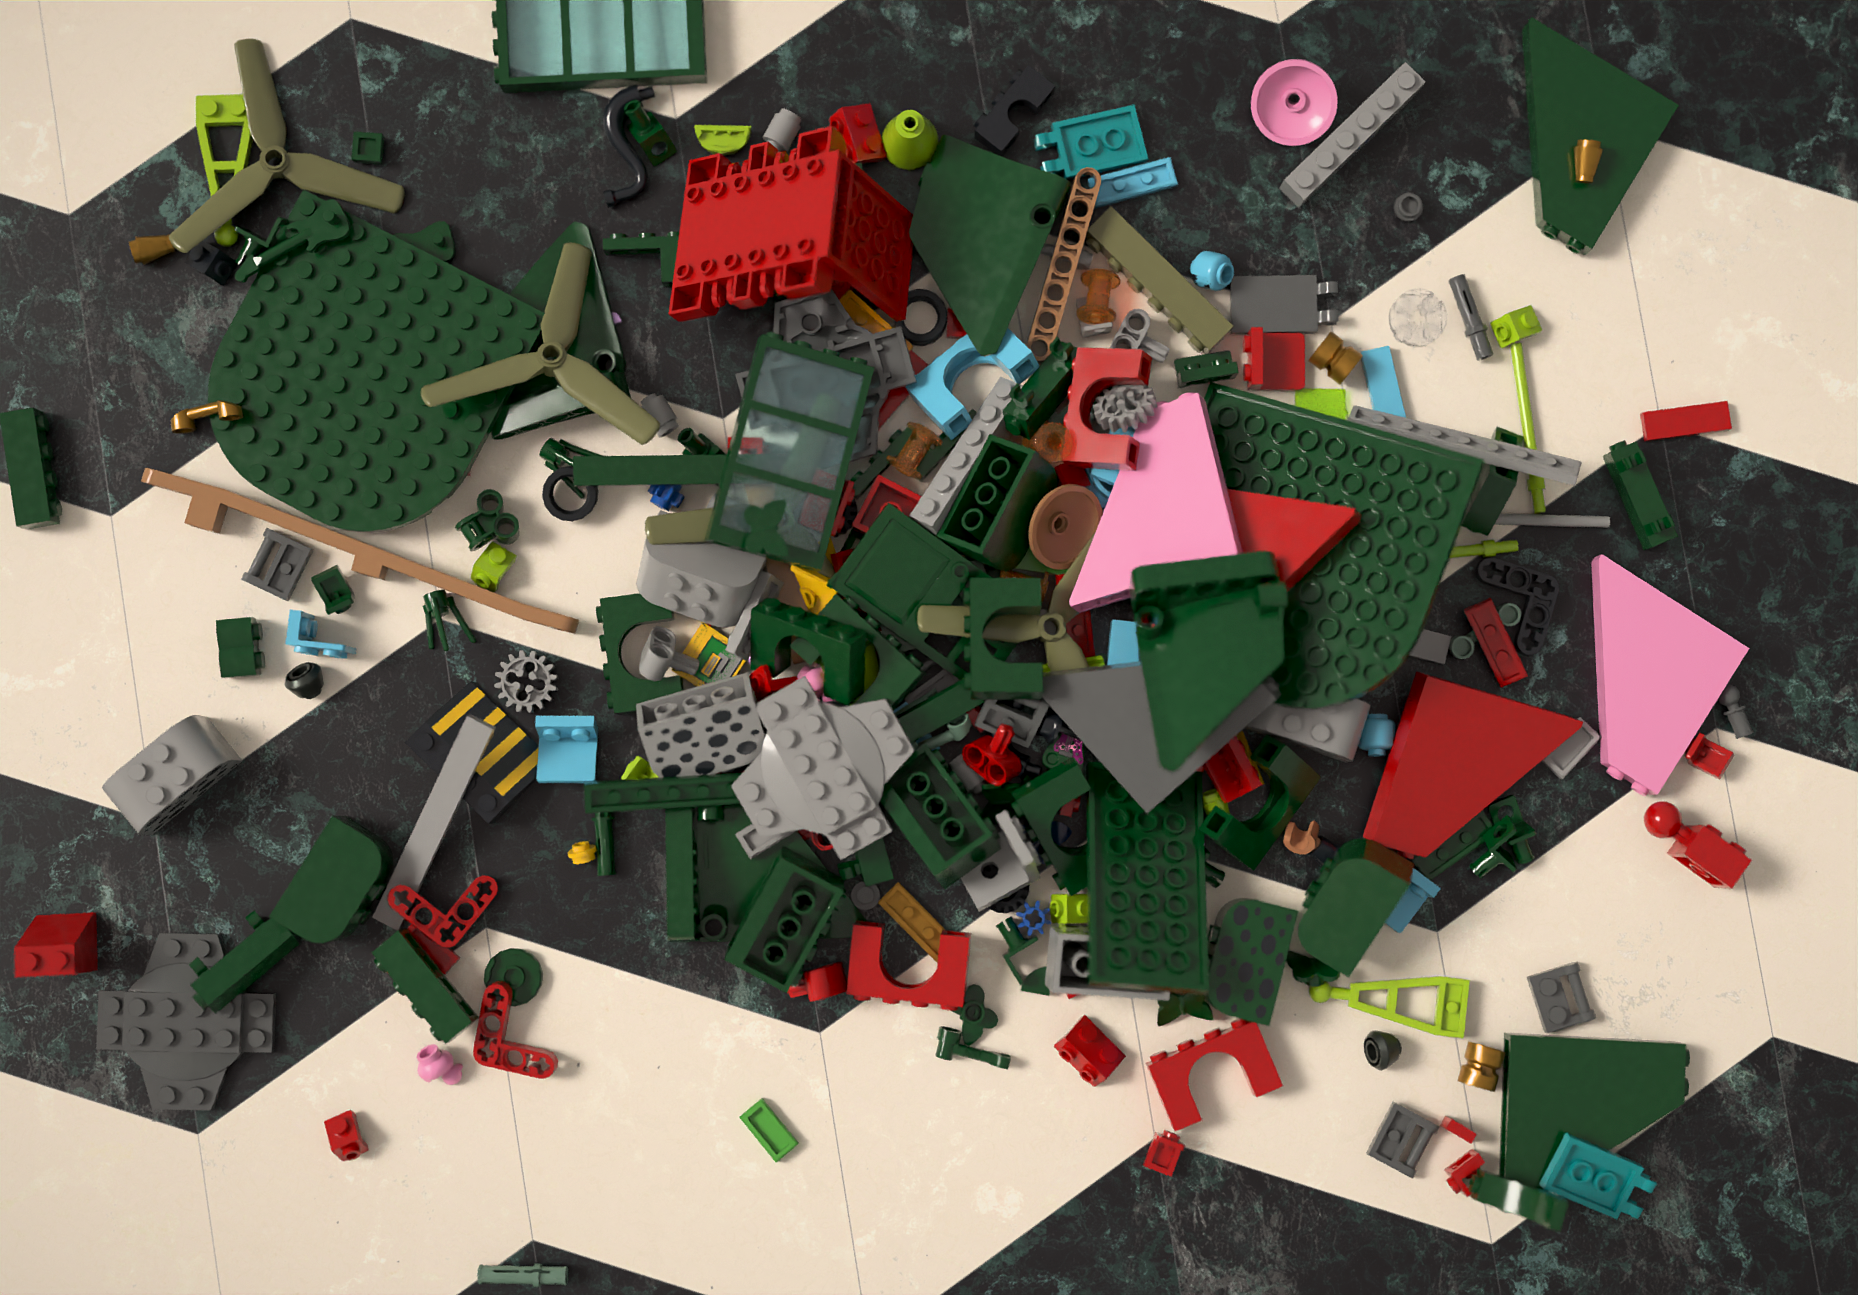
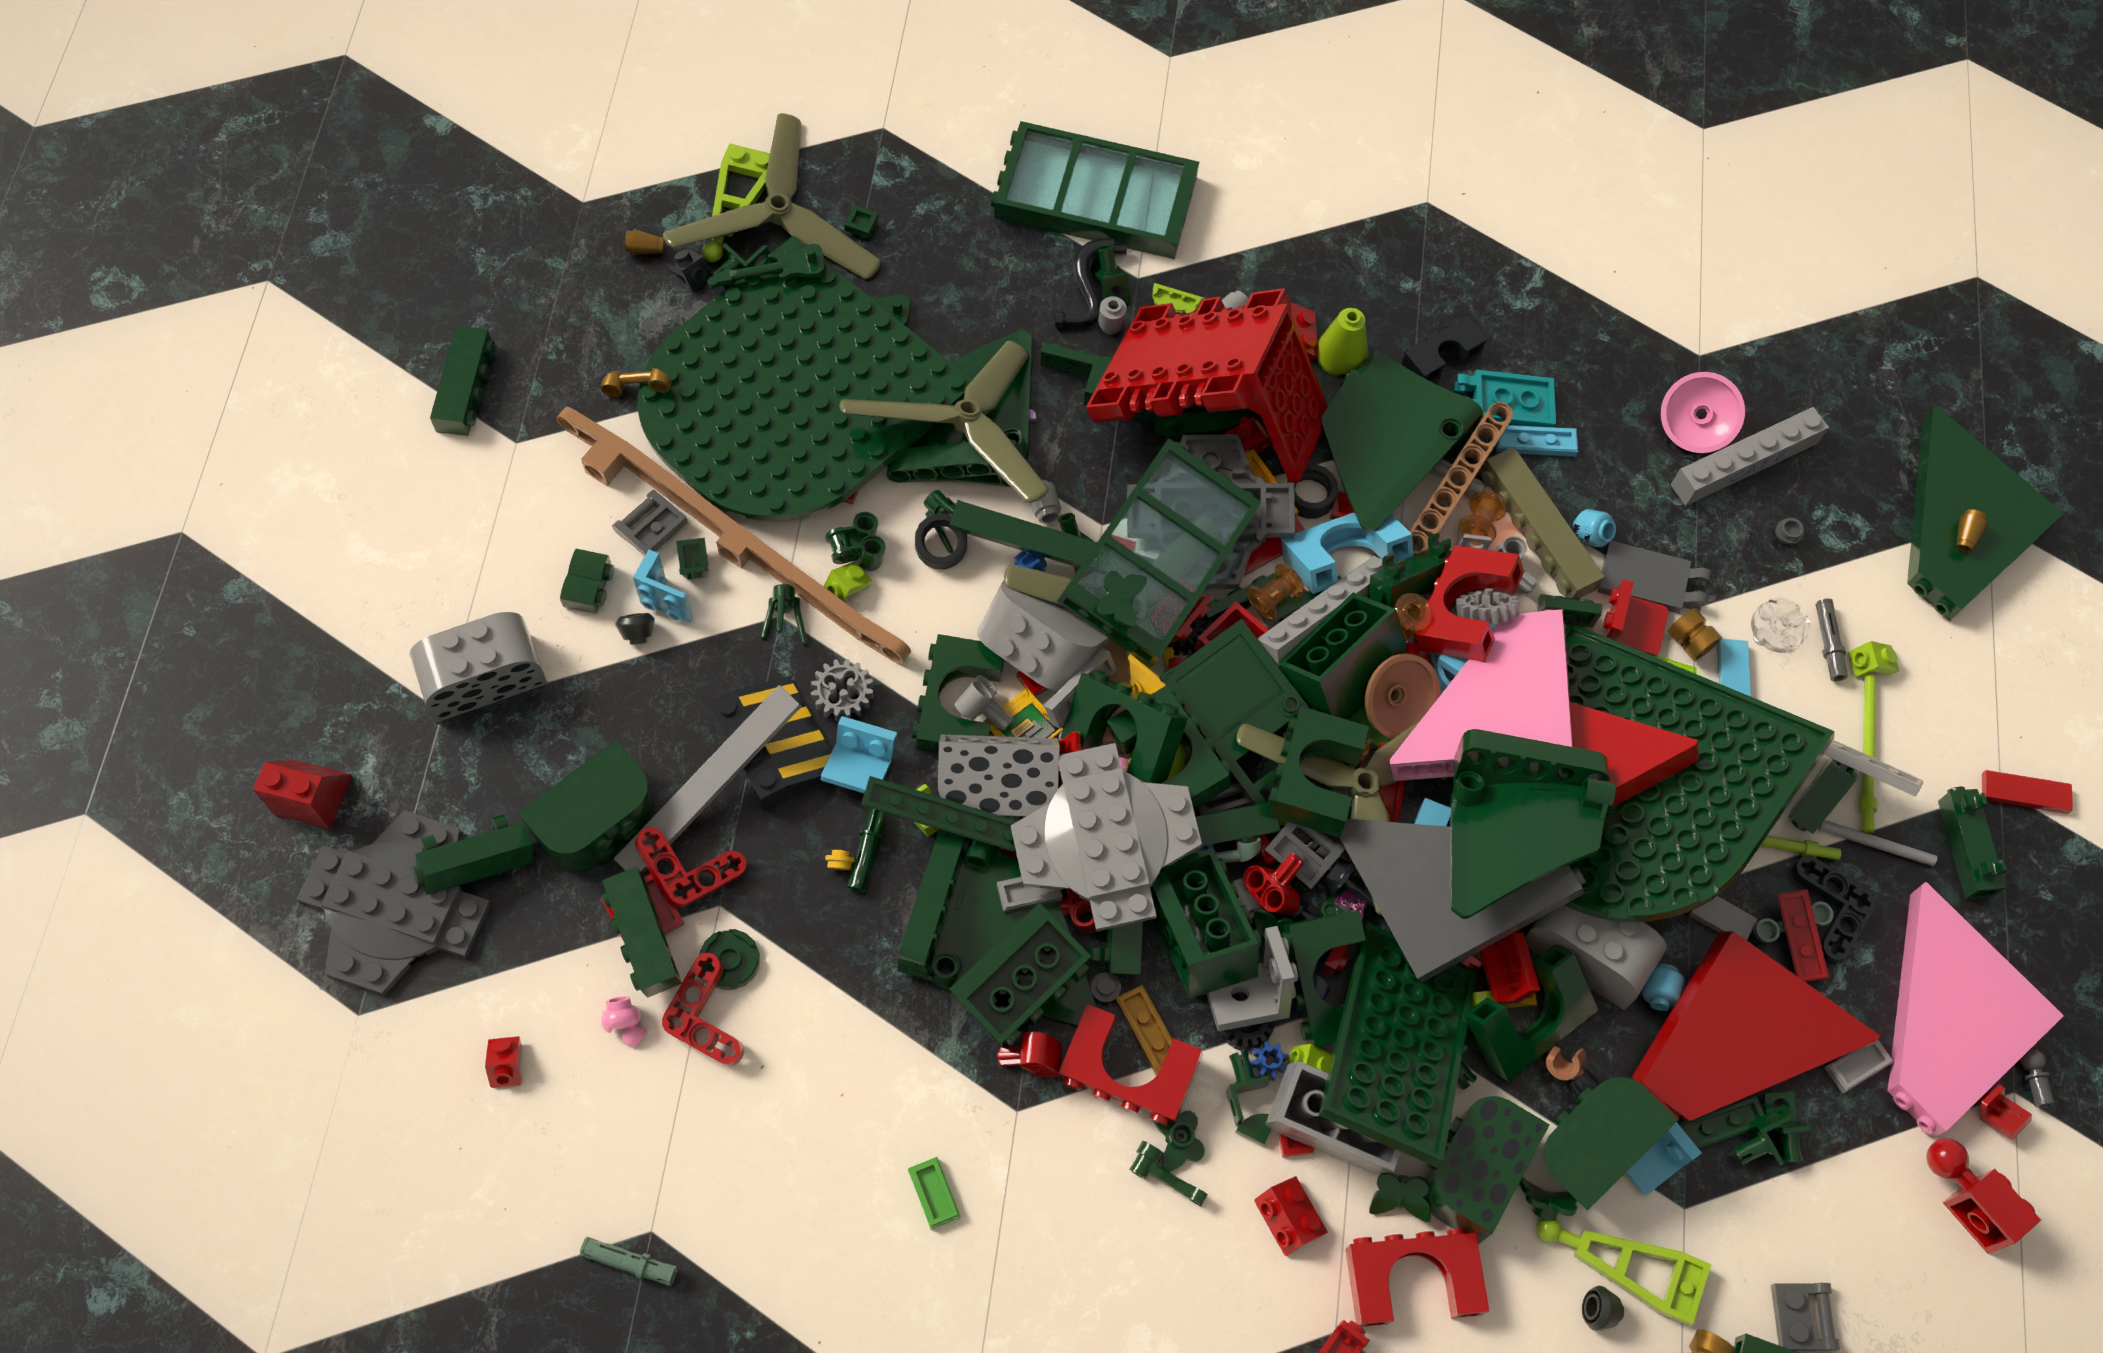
camera: 15 degrees right, 20 degrees down
(662, 187) = (1112, 315): none -> light grey brick

